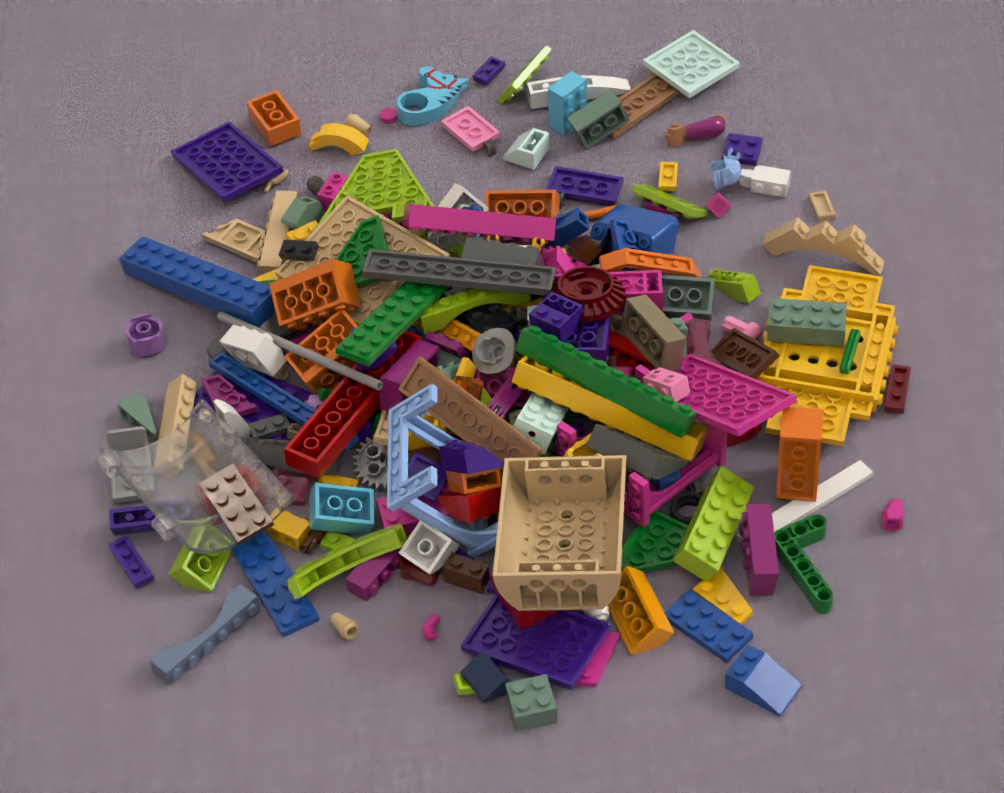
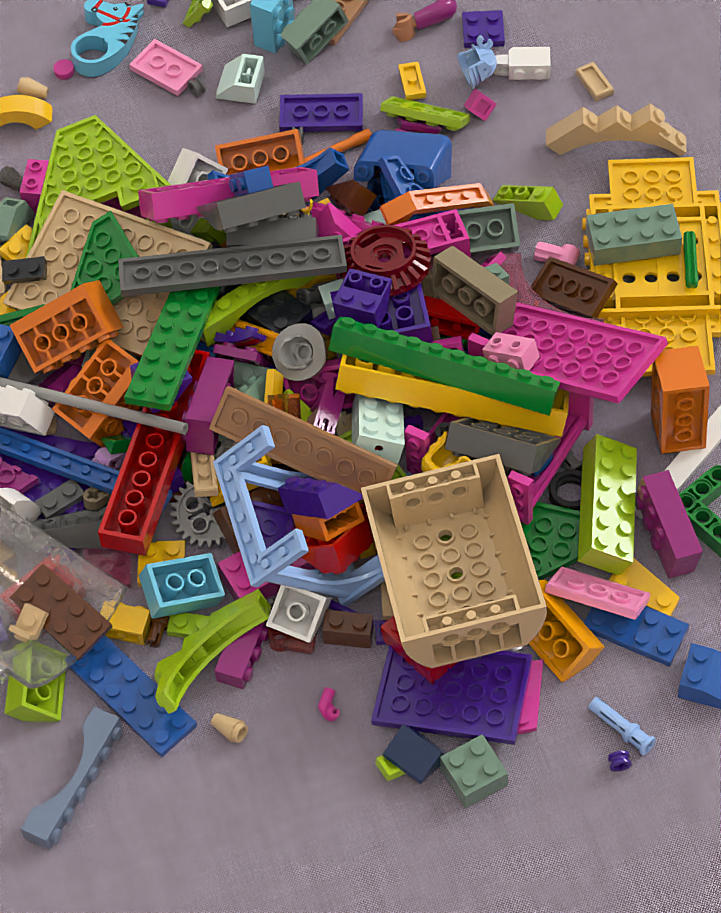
camera: 15 degrees left, 10 degrees up
(207, 505) = (29, 623): none -> tan bracket
(452, 331) = (241, 337): none -> dark purple slope
(490, 230) = (255, 206): none -> dark grey slope
(494, 211) = (250, 181): none -> blue brick
(656, 723) = (619, 760): none -> dark purple bush
(673, 703) = (629, 732): none -> light blue pin
(682, 589) = (598, 592): none -> bright pink tile

